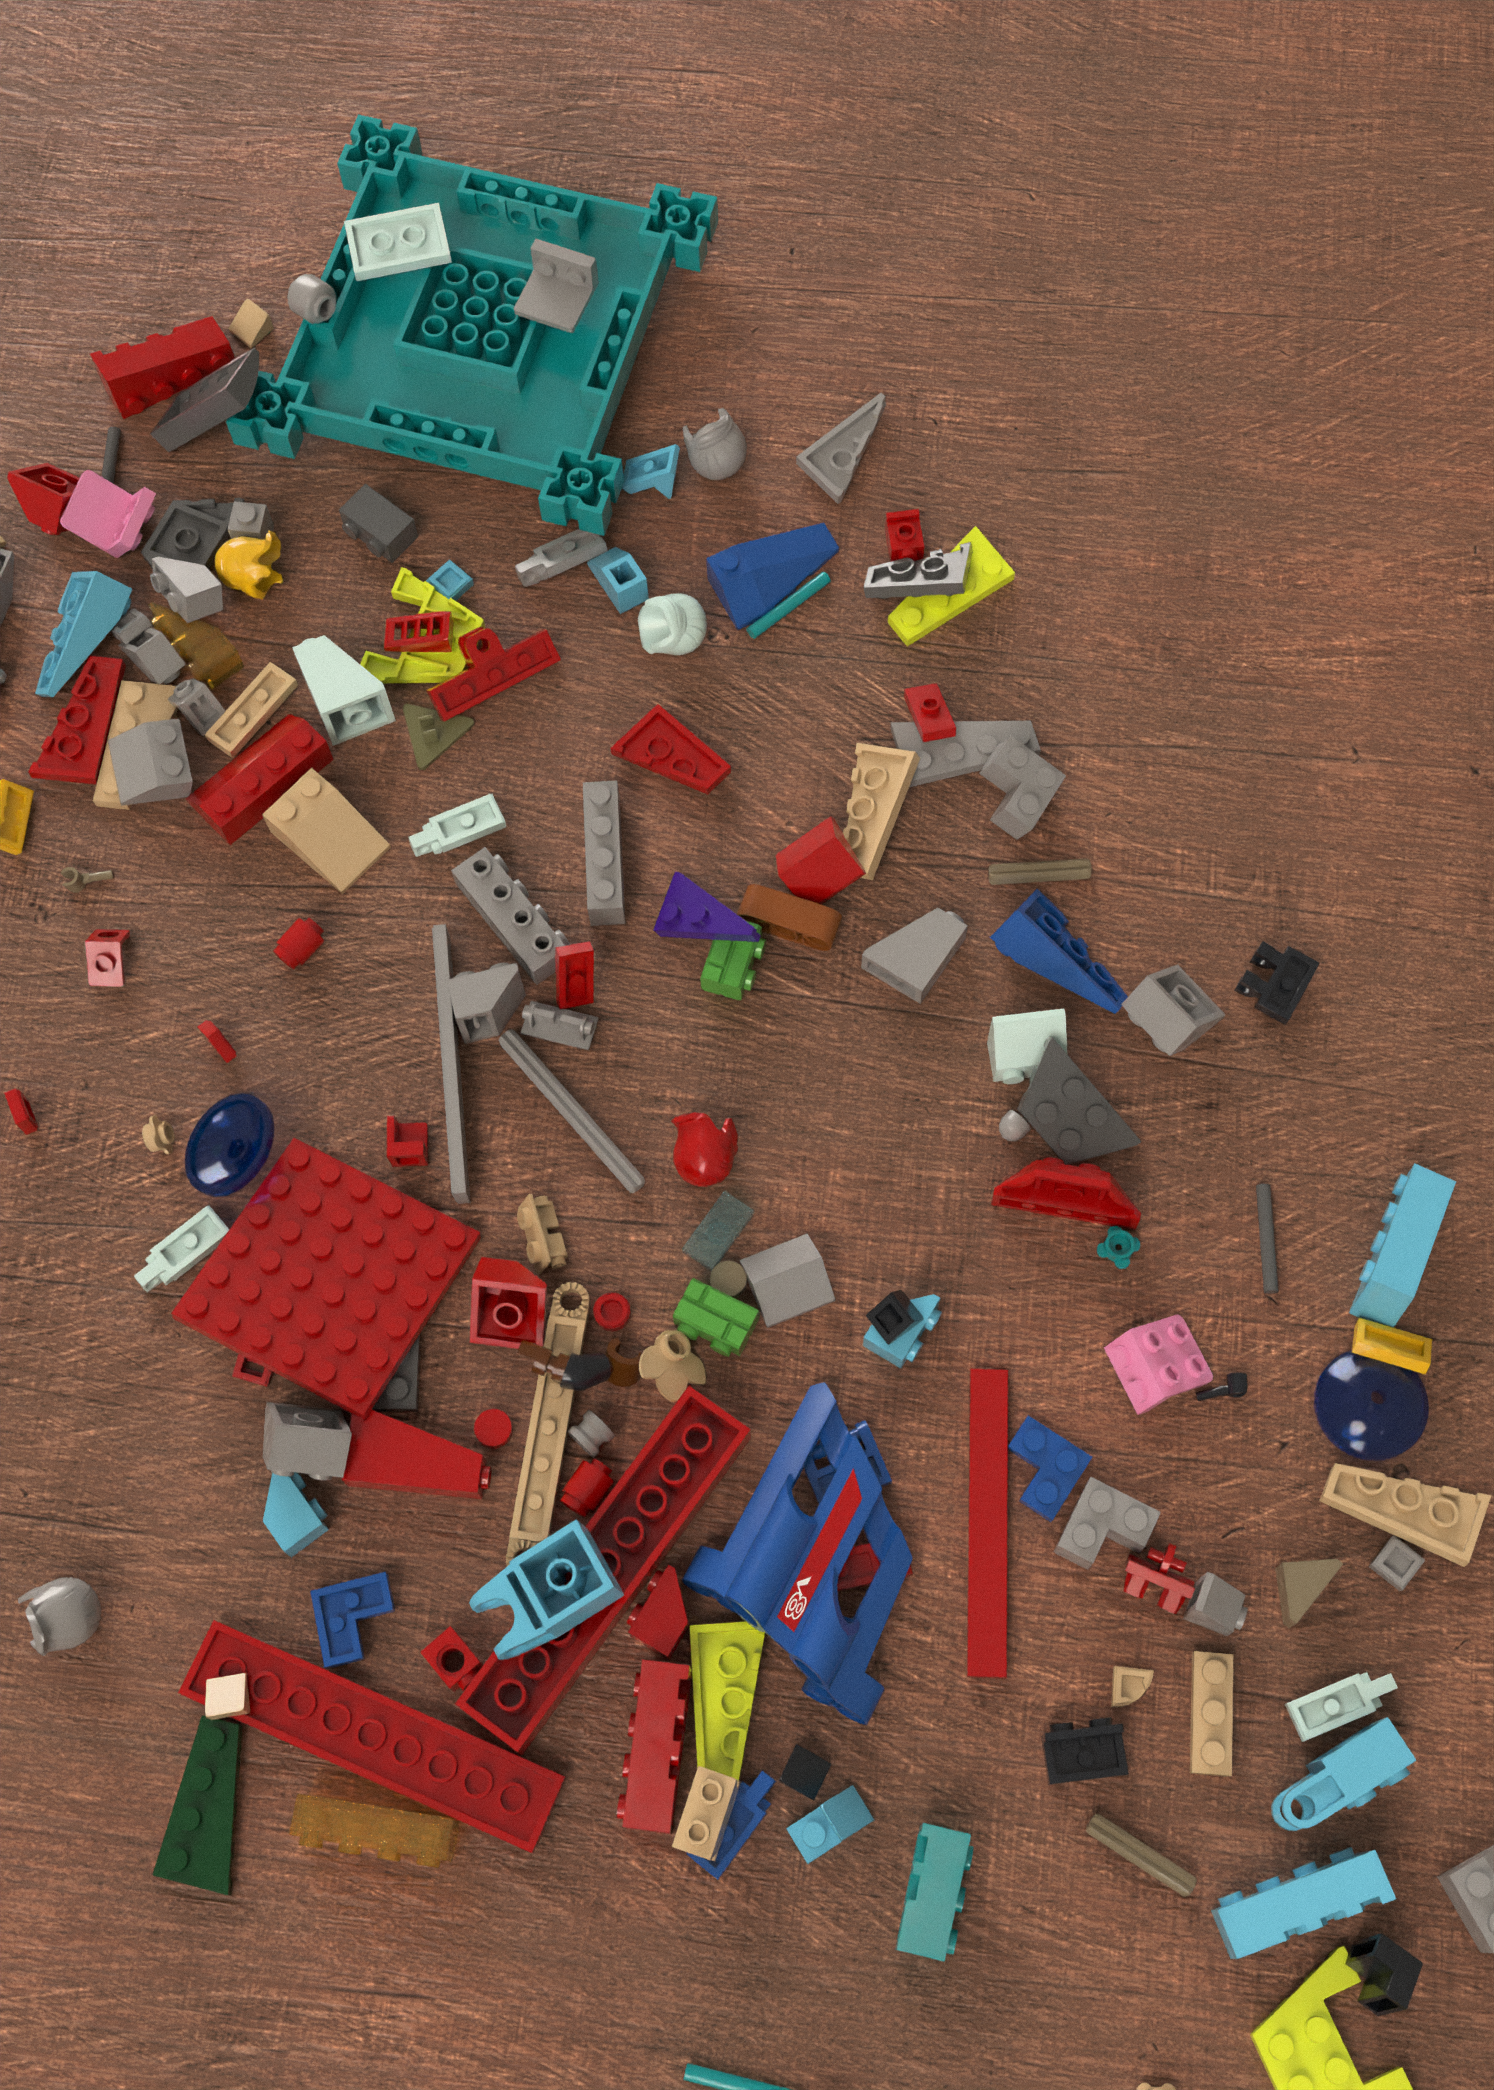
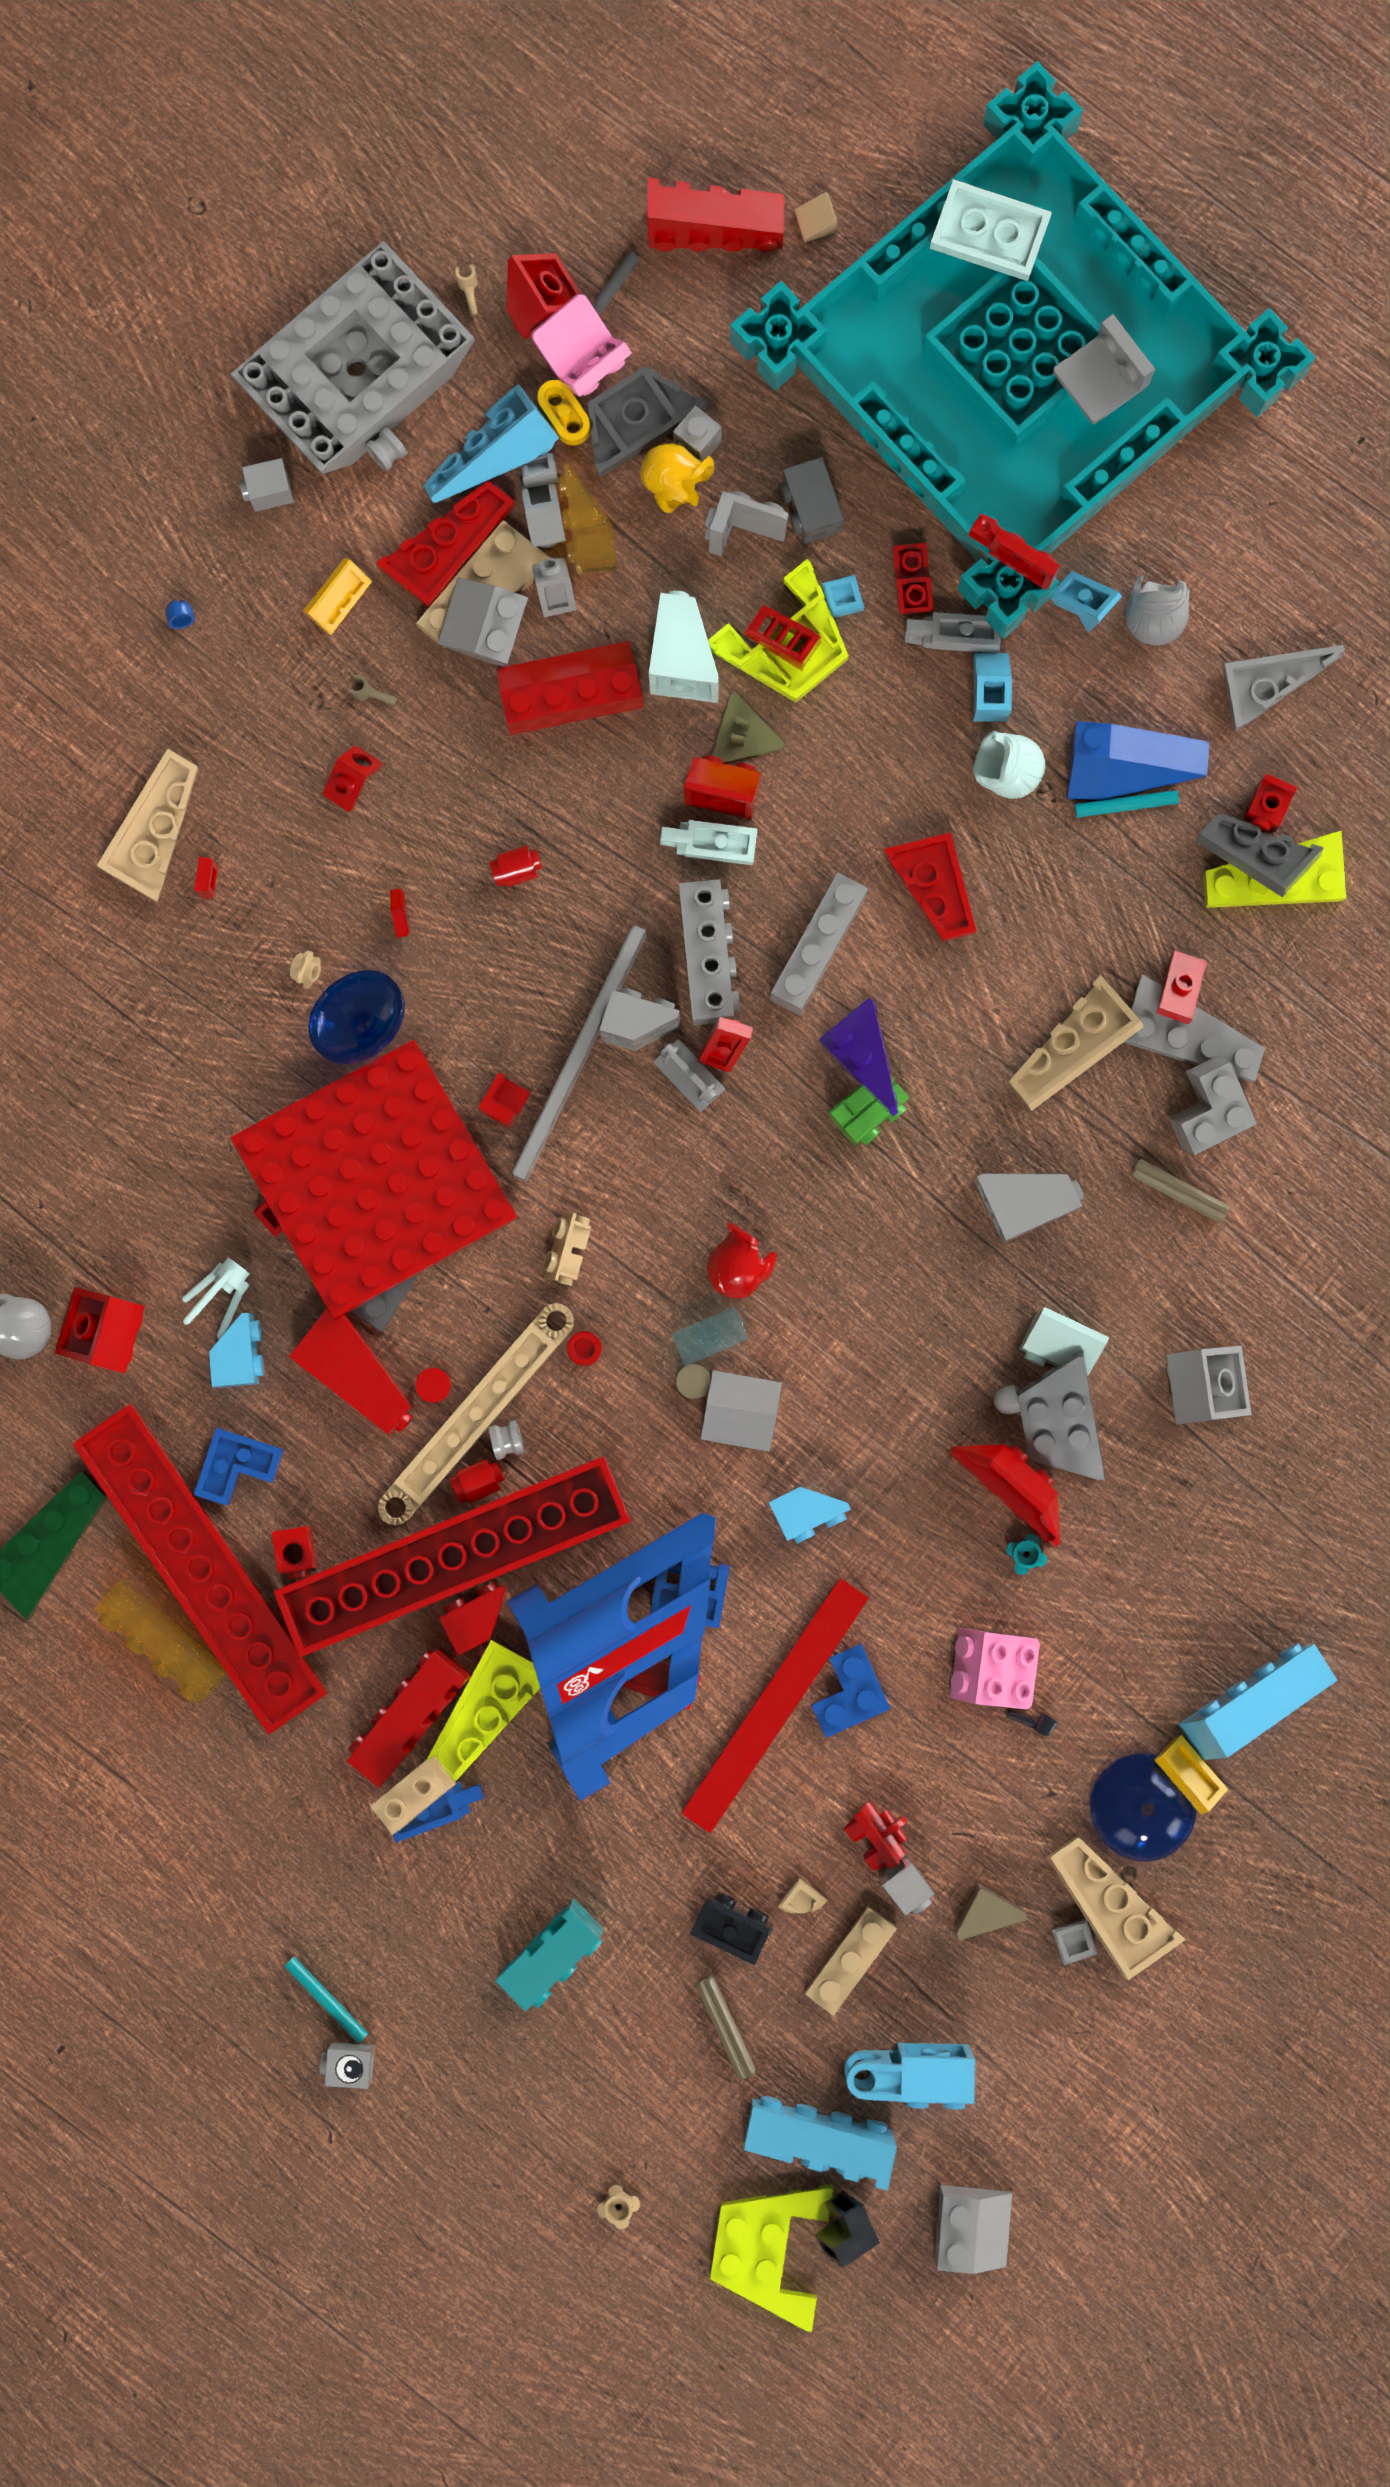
camera: 35 degrees right, 15 degrees up
(128, 571) = (565, 414): none -> yellow plate
(145, 1569) = (100, 1330): none -> red slope
(182, 1249) = (273, 1080): light aqua hinge -> none
(187, 587) = (606, 470): light grey slope -> none
(208, 401) = (728, 289): dark grey slope -> none
(227, 1696) = (106, 1472): slope -> none
(241, 1447) = (226, 1276): none -> light aqua plant
(251, 710) = (598, 618): tan plate -> none
(305, 1441) = (278, 1307): light grey slope -> none
(311, 298) = (876, 246): light grey head -> none
(325, 831) = (596, 777): tan slope -> none
(328, 560) = (741, 511): none -> light grey bracket
(442, 778) = (722, 787): none -> red slope
(490, 669) = (826, 709): red plate -> none
(499, 537) = (912, 578): none -> red slope
(506, 1304) = (503, 1293): red slope -> none
(537, 1590) = (383, 1551): medium azure brick -> none
(572, 453) = (1014, 552): none -> red hinge
(572, 1111) = (654, 1157): light grey axle -> none
(586, 1370) = (531, 1389): piece -> none
(673, 1367) = (602, 1429): tan plate -> none
(715, 1318) = (662, 1408): bright green brick -> none
(790, 917) = (939, 1100): dark orange beam -> none
(804, 1772) = (511, 1804): black slope -> none
(819, 863) = (993, 1068): red slope -> none
(830, 1824) = (506, 1855): medium azure slope -> none
(894, 1316) = (803, 1502): black slope -> none
(1039, 941) = (1138, 1260): blue wedge -> none
(1102, 1514) = (864, 1758): light grey brick -> none
(1267, 1239) = (1153, 1623): dark grey bar -> none
(1286, 985) = (1318, 1423): black plate -> none
(1338, 1704) = (952, 2017): light aqua hinge -> none

